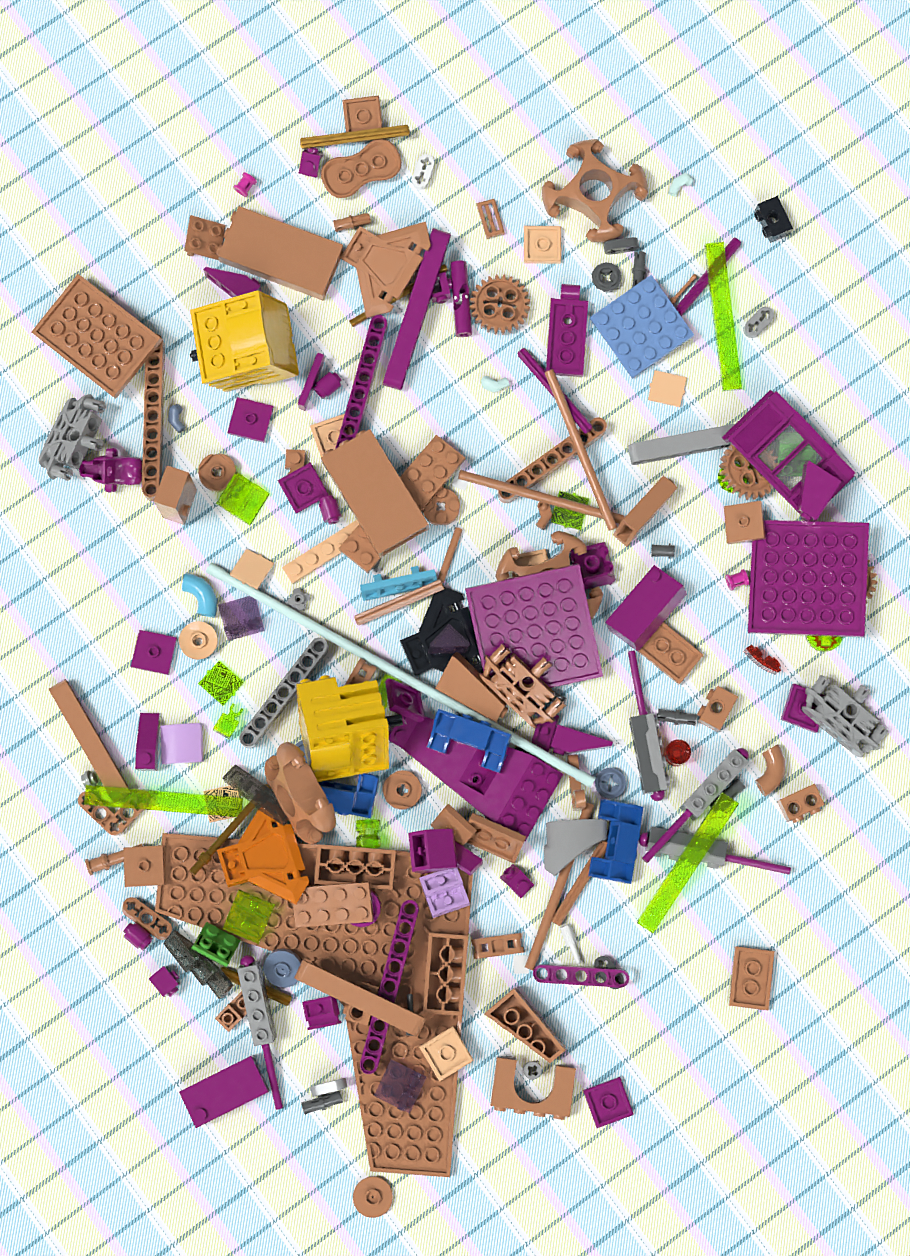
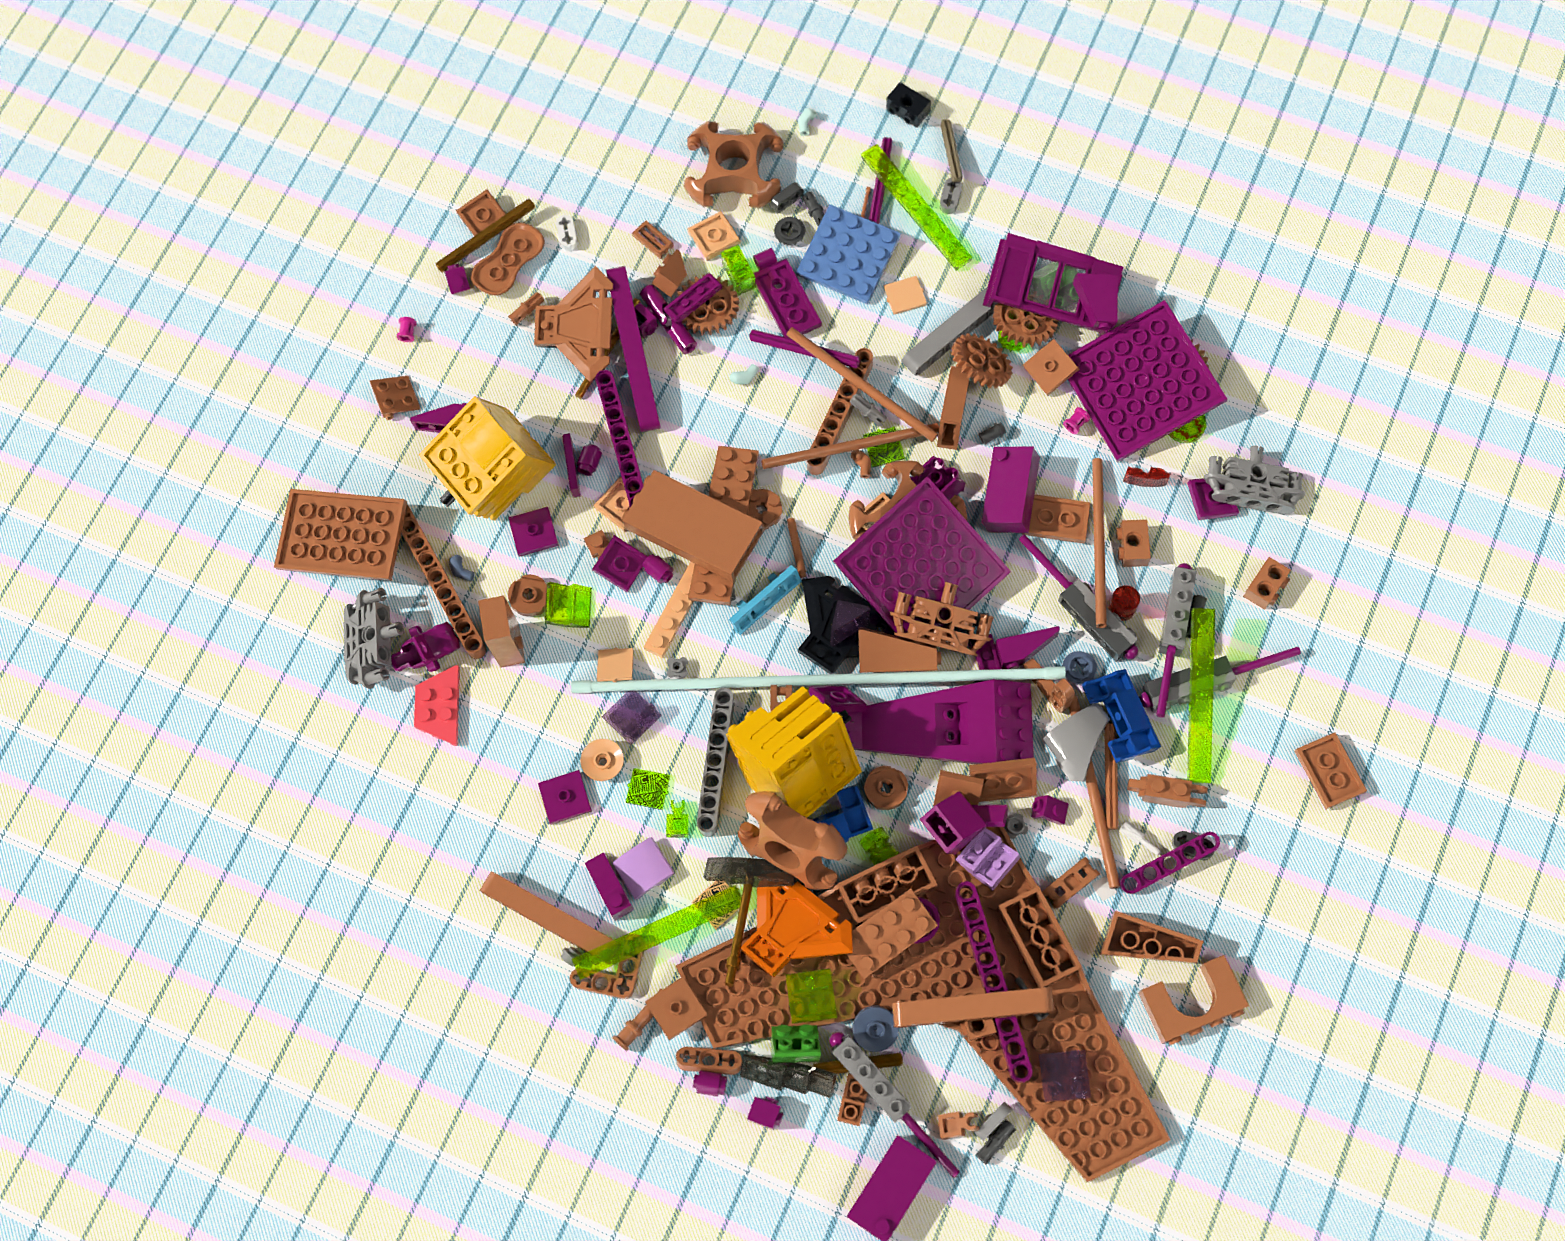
camera: 20 degrees left, 10 degrees down
(98, 521) = (438, 705): none -> coral wing
(203, 592) = (582, 713): medium azure cylinder -> none
(280, 253) = (474, 367): nougat brick -> none
(299, 1072) = (954, 1124): none -> nougat plate
(321, 1012) = (941, 1049): magenta plate -> none
(363, 1199) = (1094, 1207): nougat piece -> none
(398, 602) = (775, 616): axle -> none
(446, 1053) = (1089, 1015): light nougat tile -> none
(471, 733) = (922, 692): blue bracket -> none
(486, 261) = (671, 274): none -> nougat slope
(487, 881) = (1021, 829): none -> light grey plate
(489, 294) = (693, 298): none -> magenta tile
(532, 1076) = (1187, 979): light grey bush -> none
(542, 289) = (738, 270): none -> clear neon green brick
(574, 473) = (868, 409): none -> light grey axle
(608, 1102) = (1274, 971): magenta tile -> none
(614, 920) = (1167, 791): none -> nougat hinge
(676, 717) = (1110, 569): dark grey pin -> none
(688, 692) = (1099, 543): none -> nougat piece
(690, 485) = (981, 360): none -> nougat gear
(774, 771) = (1224, 570): nougat cylinder -> none
(783, 282) = (951, 151): none -> dark tan axle

